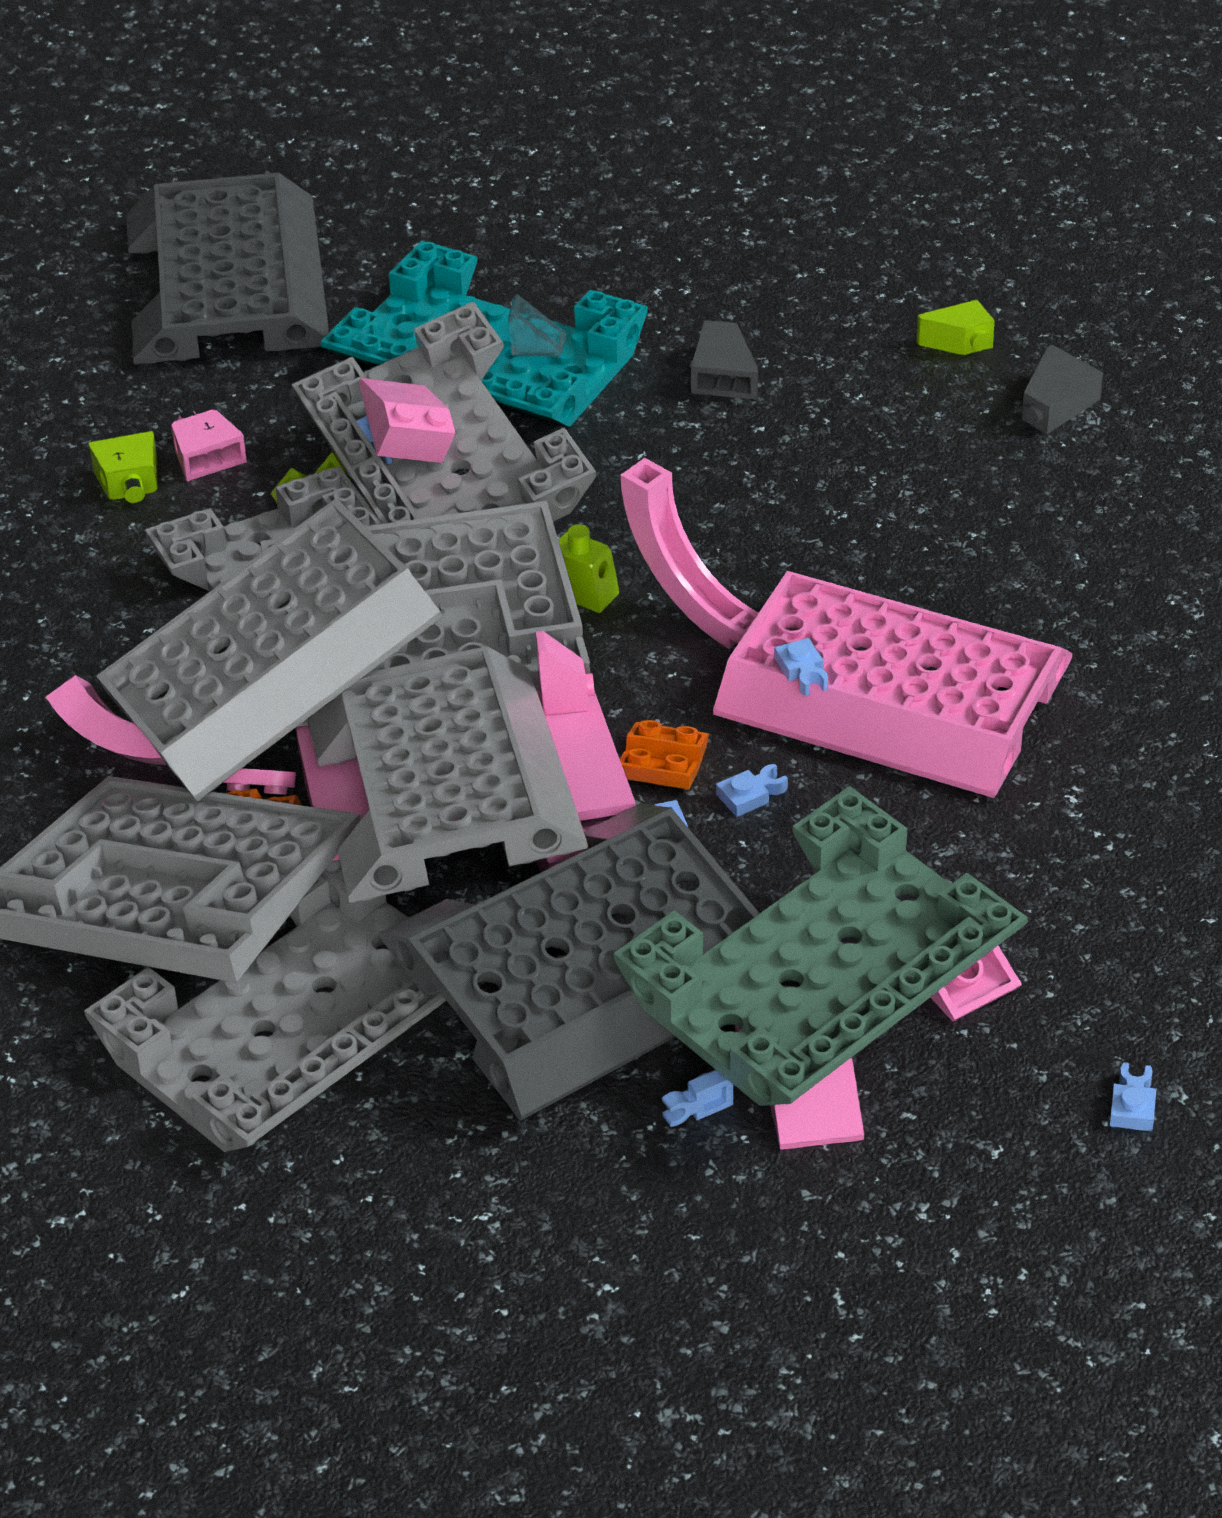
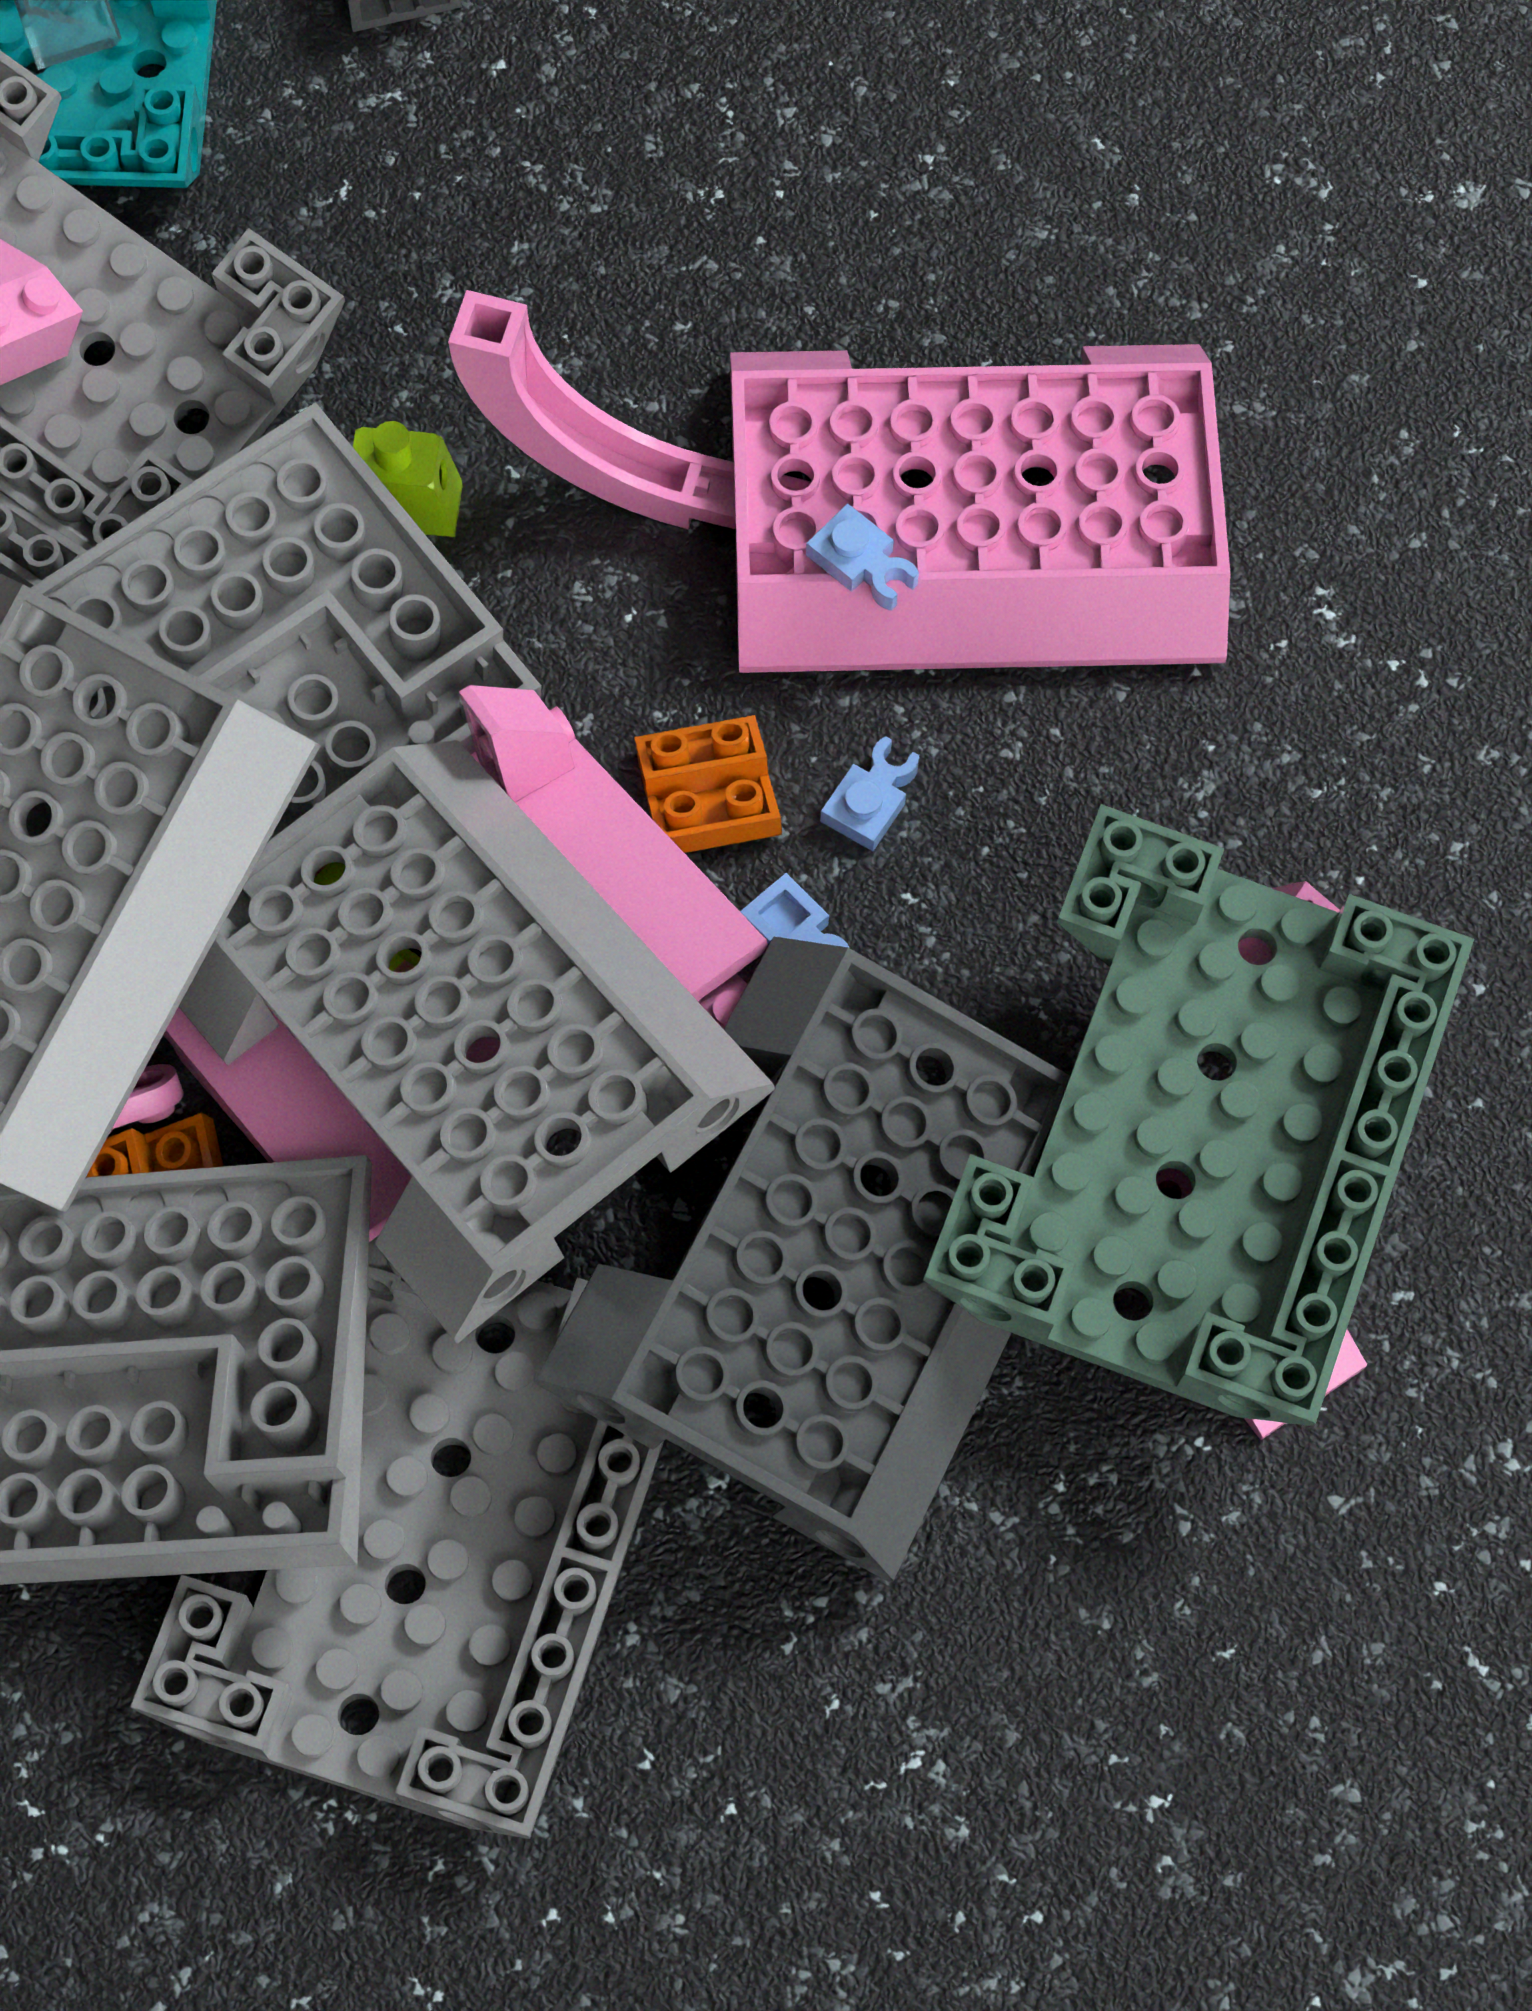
camera: 30 degrees left, 25 degrees up
(704, 1096) = (1122, 1400): light blue plate -> none

